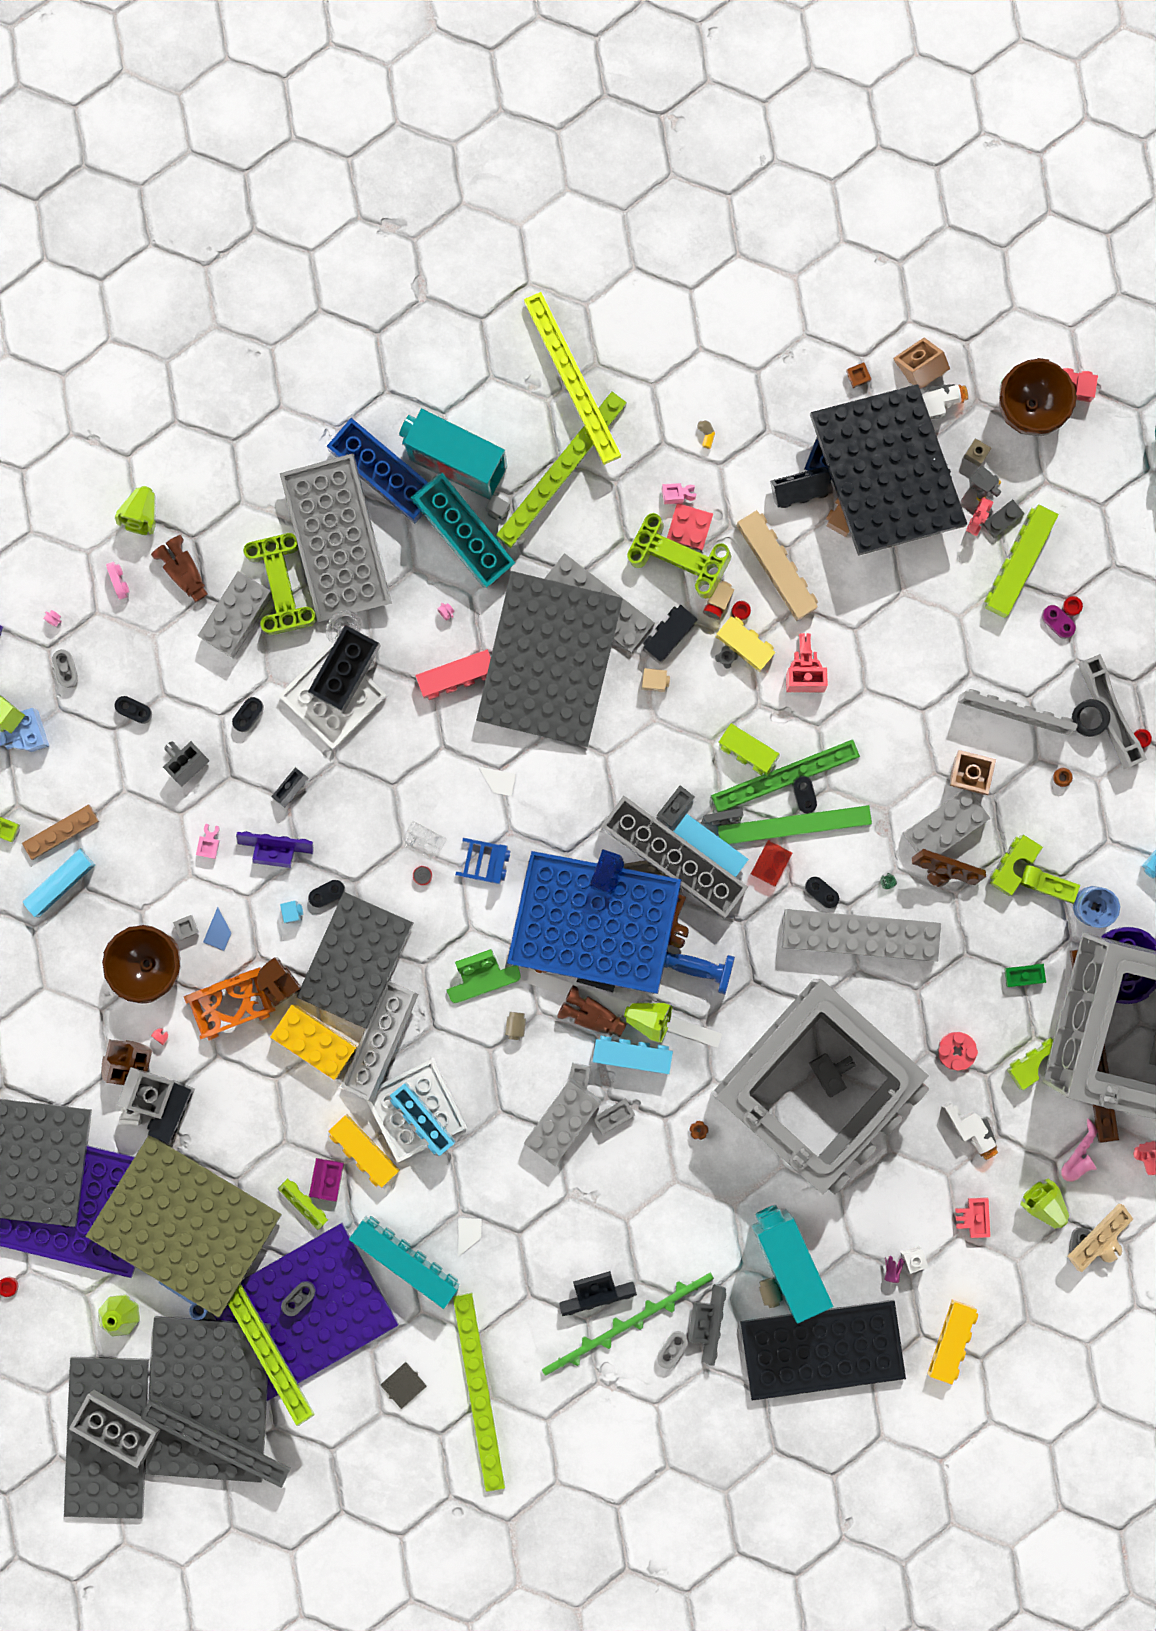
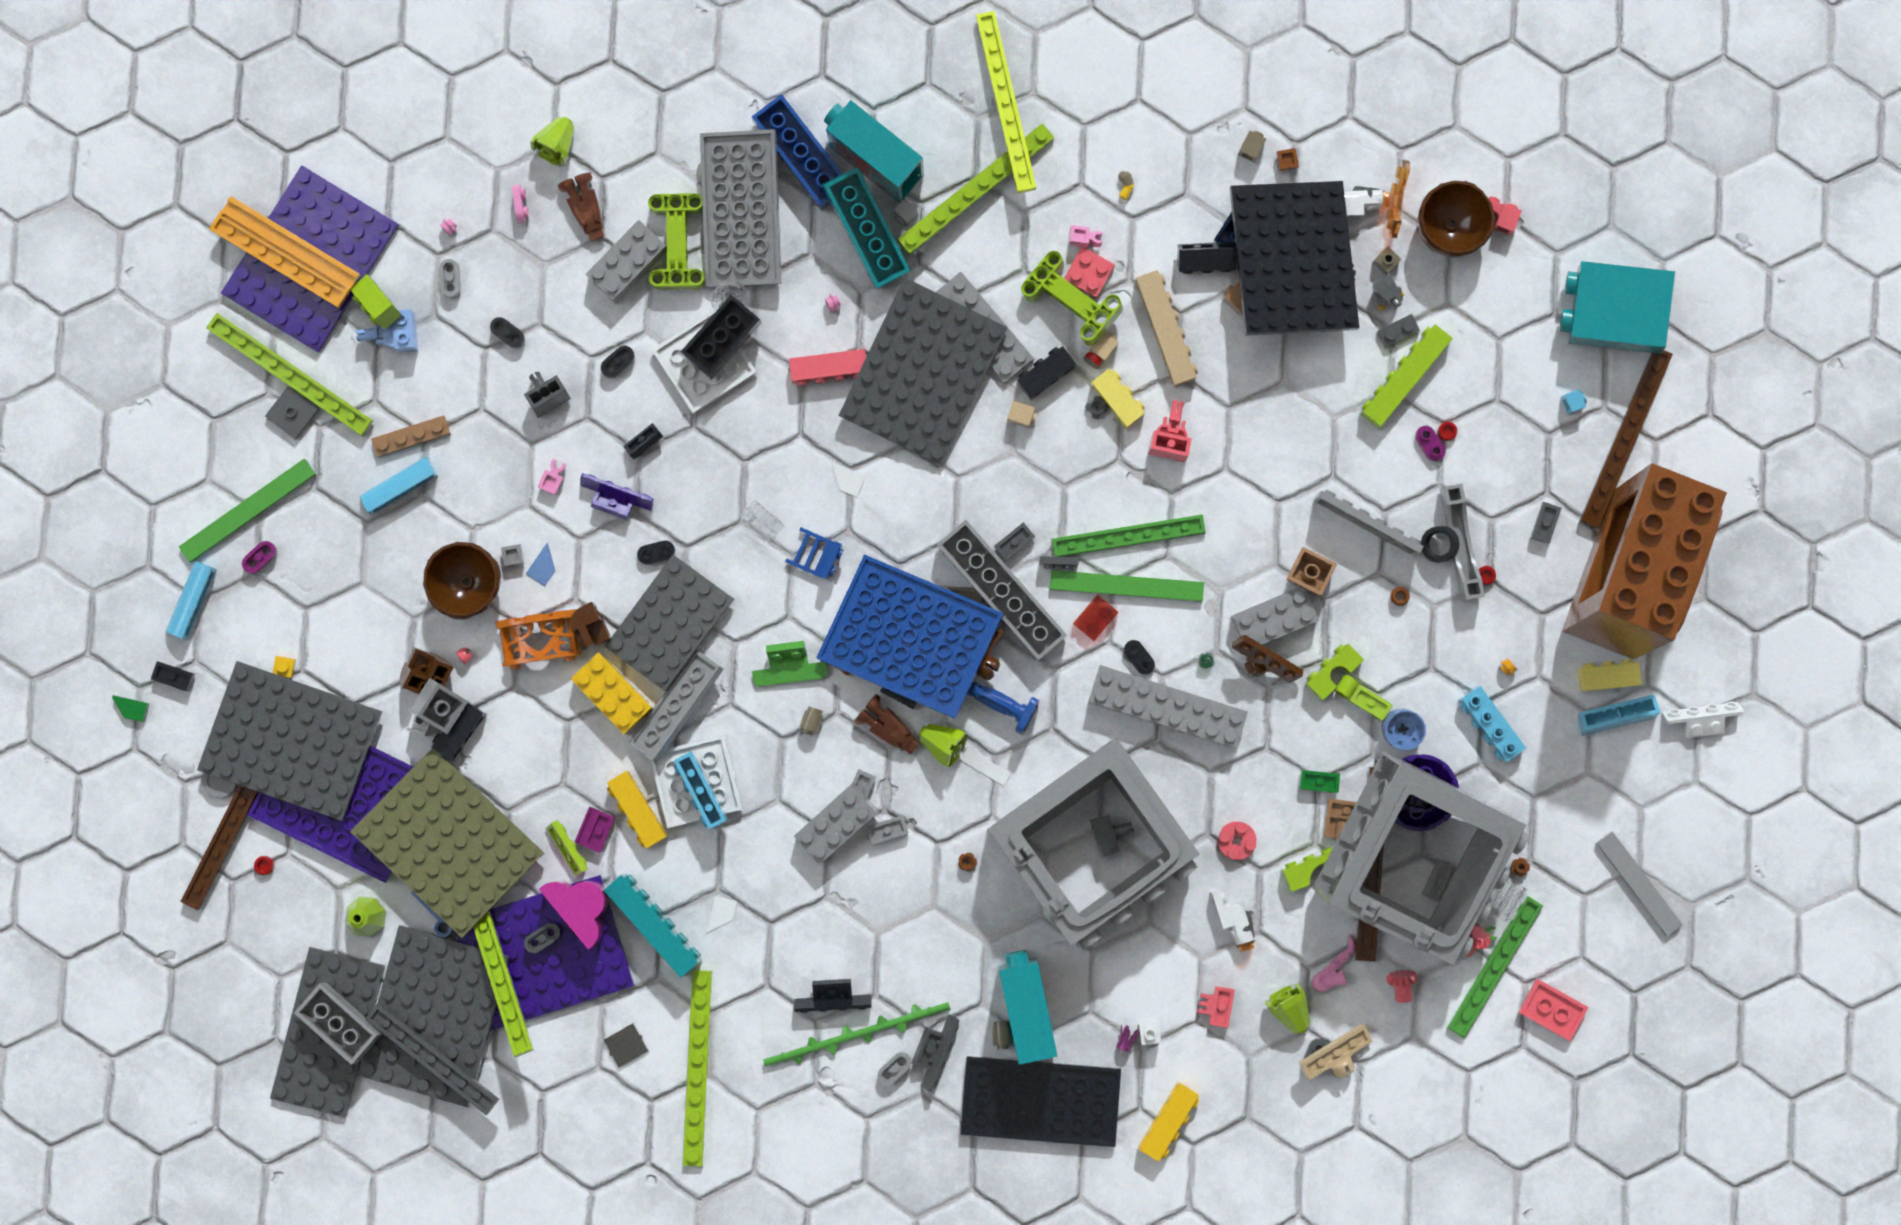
camera: 15 degrees right, 0 degrees up
(291, 911) = (617, 562): medium azure plate -> none
(328, 1261) = (579, 907): none -> dark pink brick
(422, 875) = (753, 555): tile -> none
(607, 871) = (932, 590): clear blue brick -> none
(632, 1056) = (918, 775): medium azure brick -> none
(711, 845) = (1040, 587): medium azure brick -> none
(741, 610) = (1121, 364): red tile -> none
(748, 750) = (1097, 502): lime brick -> none
(805, 794) = (1143, 558): black plate -> none
(821, 369) = (1252, 146): none -> dark tan brick
(922, 363) = (1352, 161): medium nougat slope -> none
(972, 381) = (1397, 189): none -> clear orange plate
(979, 516) = (1374, 323): coral plate -> none
(1050, 1006) = (1336, 816): none -> medium nougat plate

